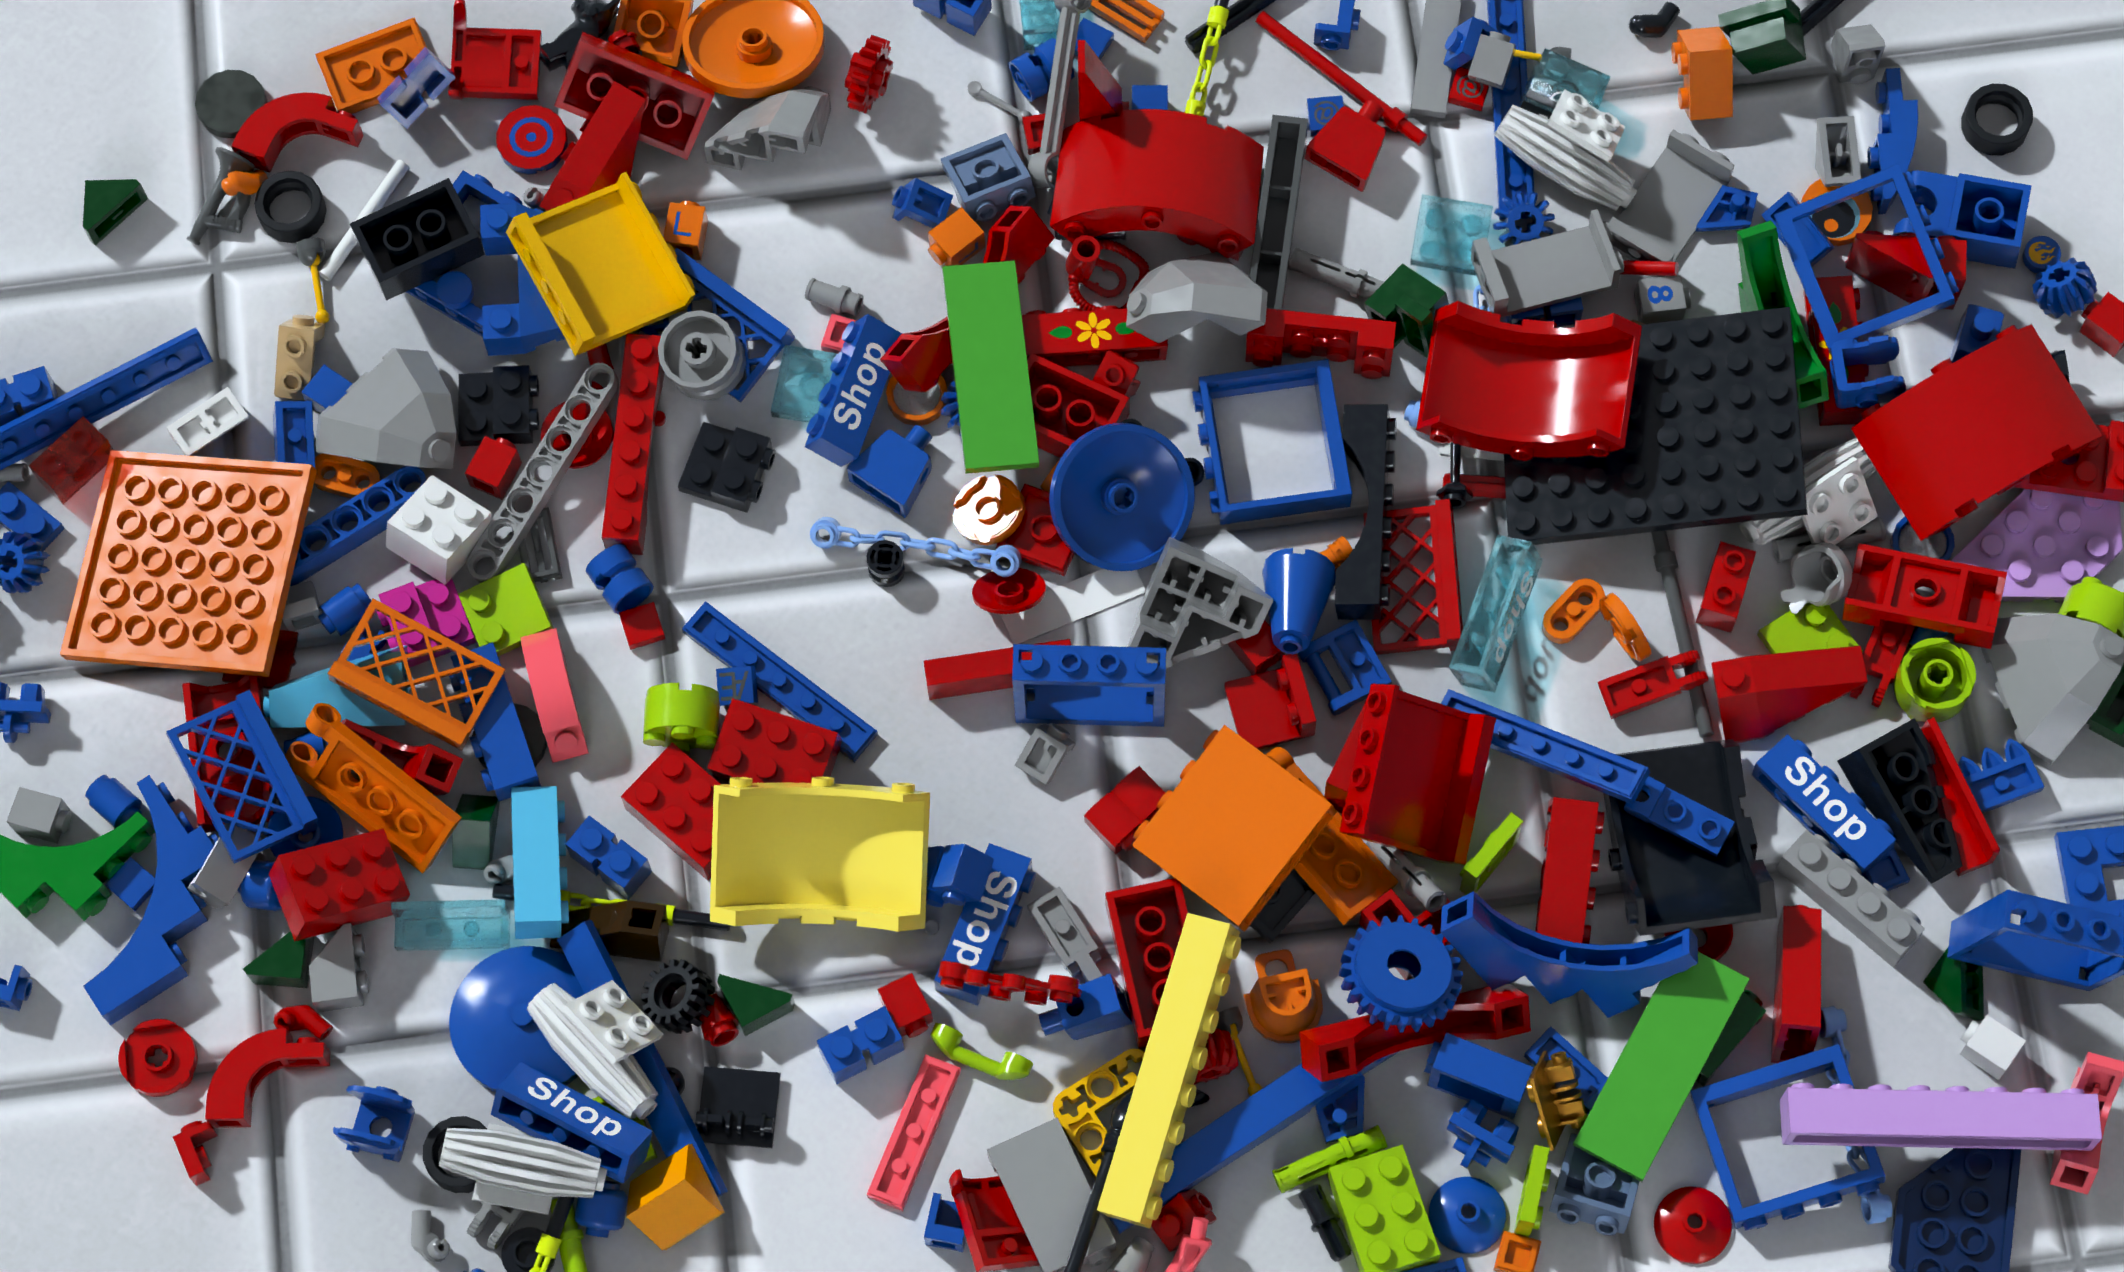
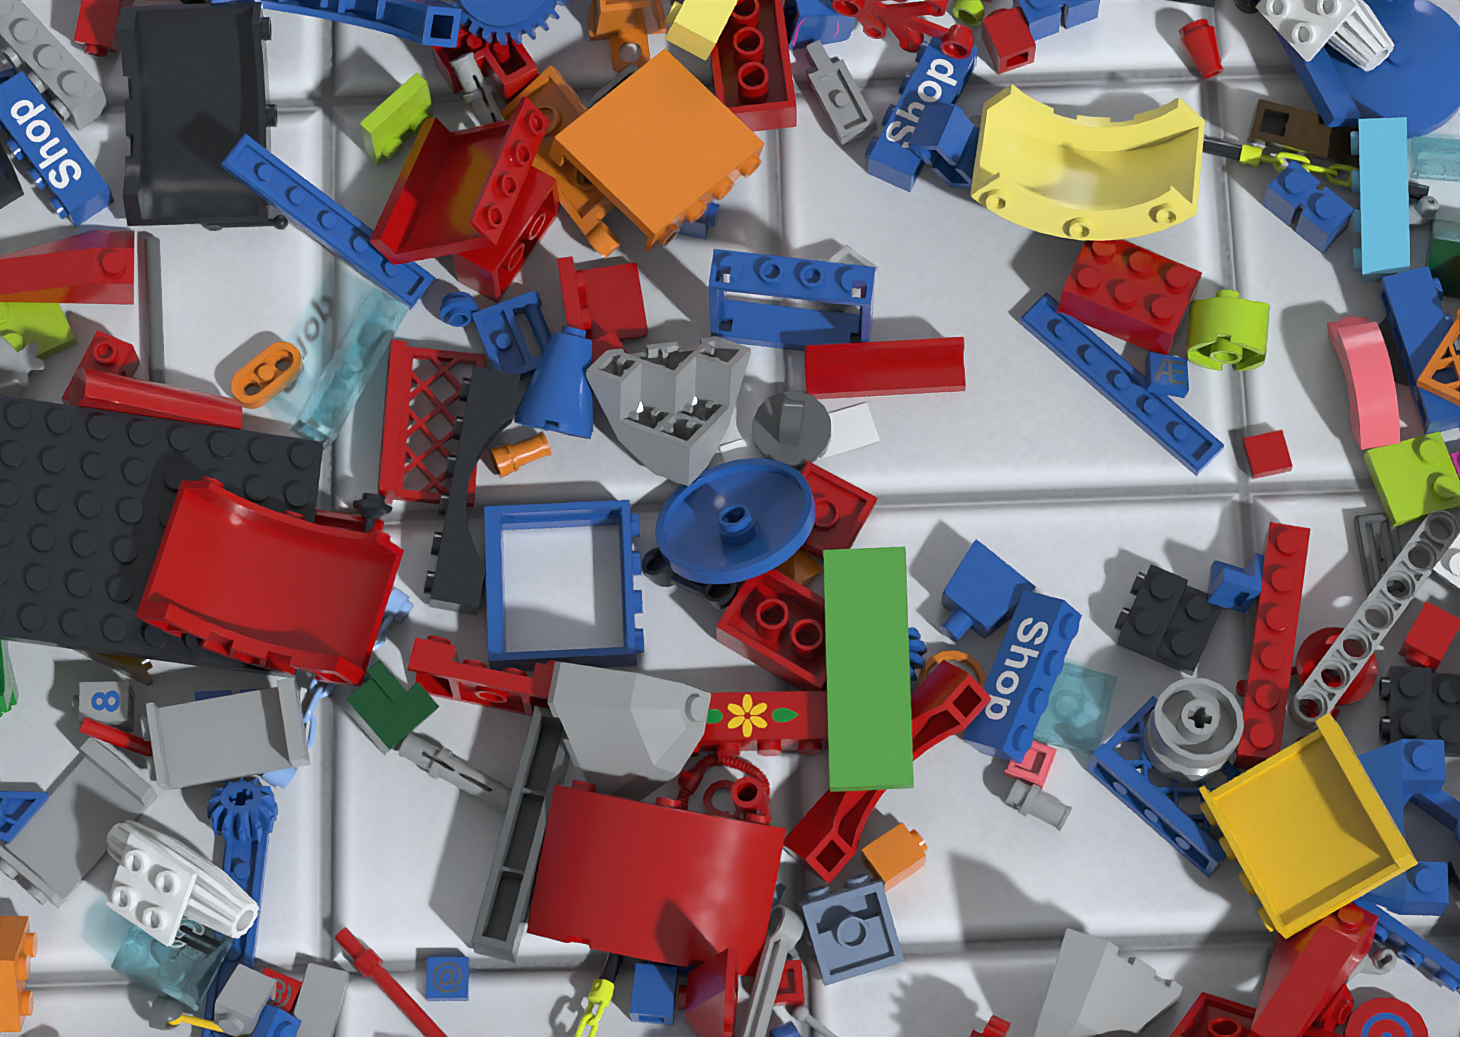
camera: 175 degrees left, 0 degrees up
(616, 575) = (1291, 496): blue wheel -> none
(668, 497) = (1235, 586): none -> blue panel
(677, 806) = (1226, 244): red brick -> none
(686, 228) = (1206, 899): orange brick -> none
(690, 1007) = (1256, 56): black tyre -> none
(754, 1004) = (1162, 55): dark green slope -> none
(882, 570) = (999, 498): black wheel -> none
(921, 202) = (931, 906): blue bracket -> none
(973, 556) = (1061, 532): light blue piece -> none
(988, 510) = (883, 525): tile -> none
(1009, 593) = (870, 464): red dish -> none
(1080, 606) = (792, 428): none -> dark grey tile
(1118, 374) = (726, 666): red bracket -> none
(1124, 810) = (763, 210): red brick -> none
(1349, 144) = (425, 926): red torso -> none
(1408, 684) = (457, 309): none -> blue plate
(1447, 233) = (327, 811): clear light blue plate -> none
(1568, 869) = (322, 100): red wedge -> none
(1625, 627) = (216, 336): orange tile -> none
(1649, 683) = (200, 287): red hinge -> none
(1666, 546) = (152, 399): none -> red brick
(1682, 817) = (191, 146): blue plate -> none

